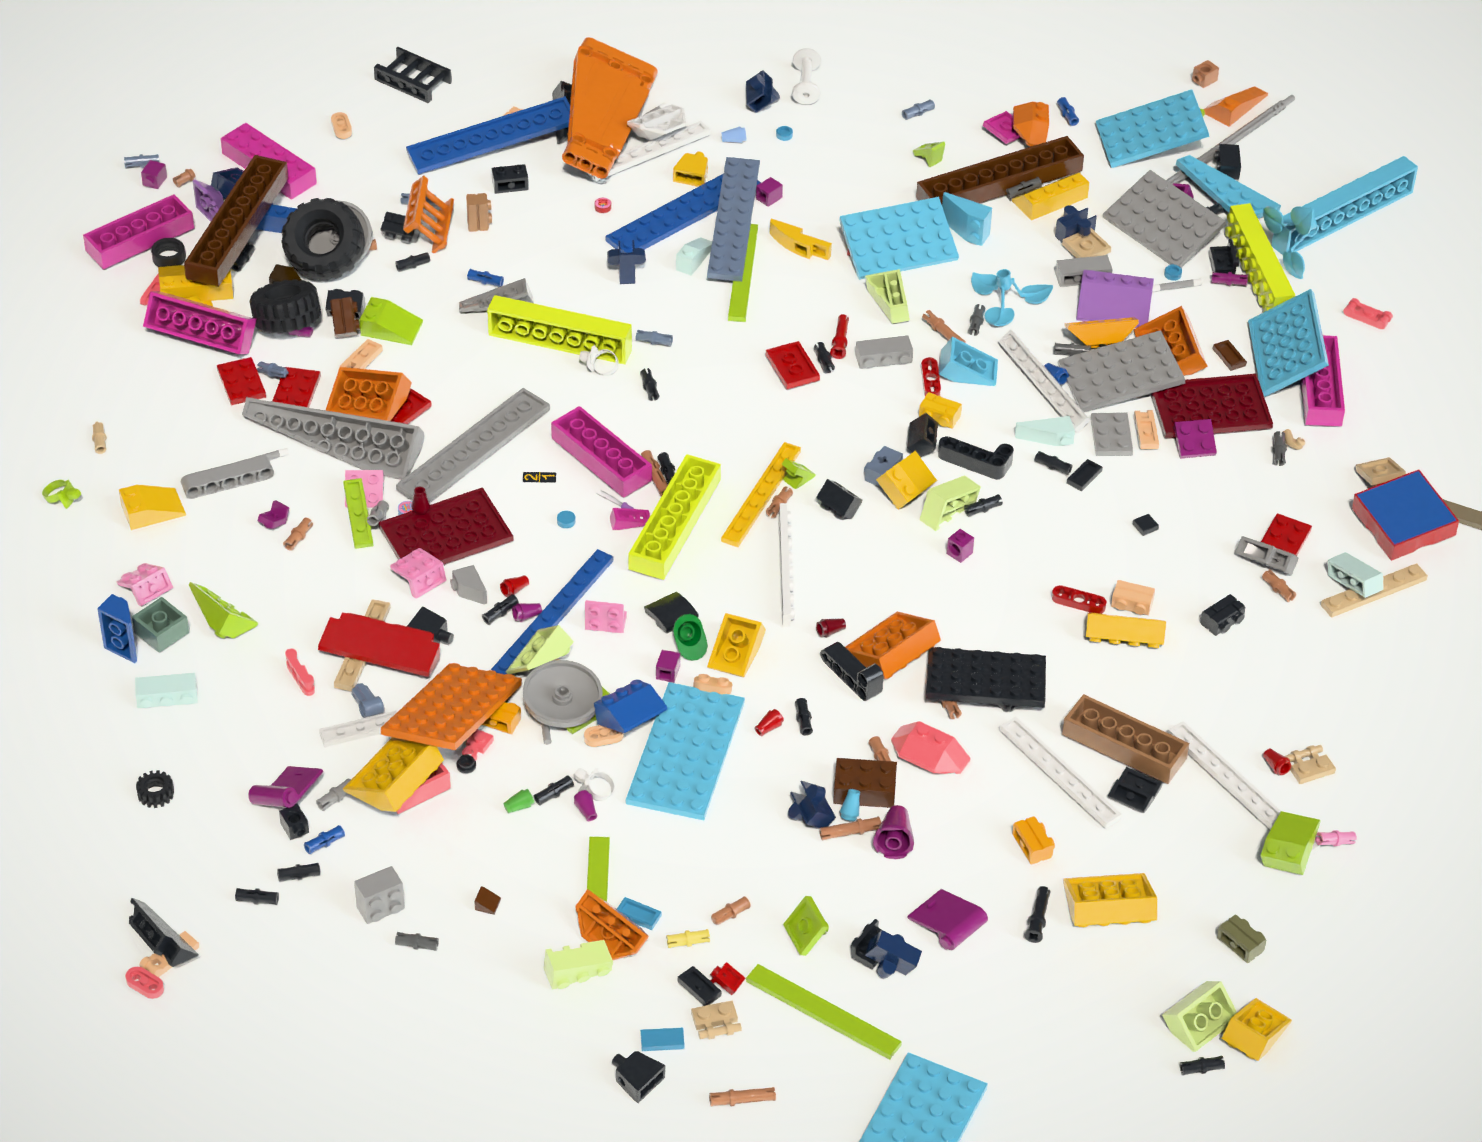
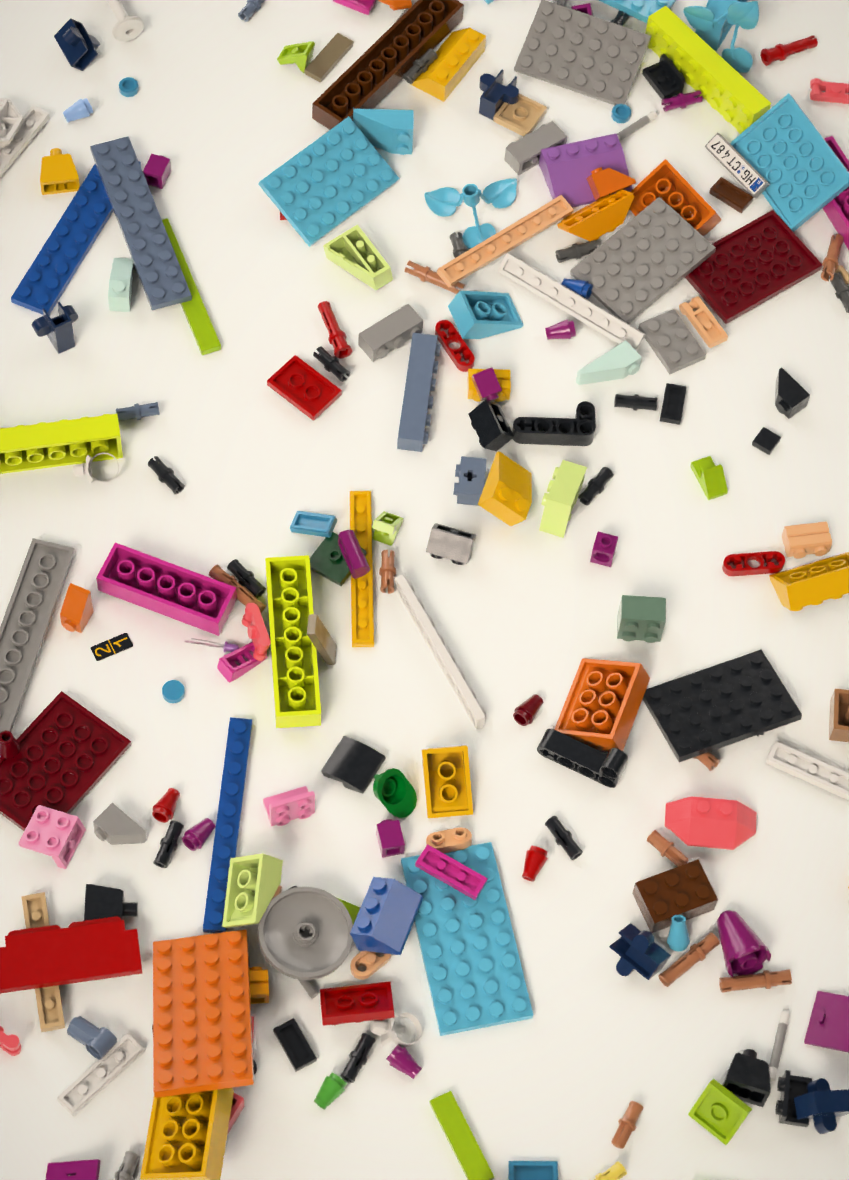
camera: 30 degrees left, 15 degrees up
(512, 766) = (294, 1045): none -> black tile
(526, 439) = (76, 608): none -> orange slope
(573, 754) = (356, 1003): none -> red plate
(651, 500) = (256, 631): none -> coral plate
(695, 518) = (321, 639): none -> dark tan tile
(698, 699) = (451, 872): none -> dark pink plate
(741, 451) = (313, 524): none -> dark azure tile
(744, 479) = (329, 561): none -> dark green plate
(756, 475) = (353, 554): none -> magenta brick
(799, 243) = (215, 224): yellow slope -> none
(842, 914) = (748, 1078): none -> black torso
(879, 396) = (417, 392): none -> sand blue brick
(887, 907) = (778, 1045): none -> light grey bar
(901, 863) = (760, 980): none -> nougat pin
(933, 403) = (486, 384): none -> magenta brick
(956, 161) = (329, 57): none -> dark tan tile
(957, 596) = (641, 618): none -> sand green brick
(1013, 320) = (504, 241): none -> light nougat plate
(1025, 396) = (561, 330): none -> magenta cone
(1081, 532) = (710, 477): none -> lime slope
(1126, 307) = (608, 182): none -> orange slope
(1184, 500) = (789, 394): none -> black slope
(1195, 438) = (759, 315): magenta plate -> none
(1246, 335) = (737, 165): none -> tile
(1280, 422) = (831, 262): none -> nougat pin
(1341, 272) = (781, 51): none -> red pin

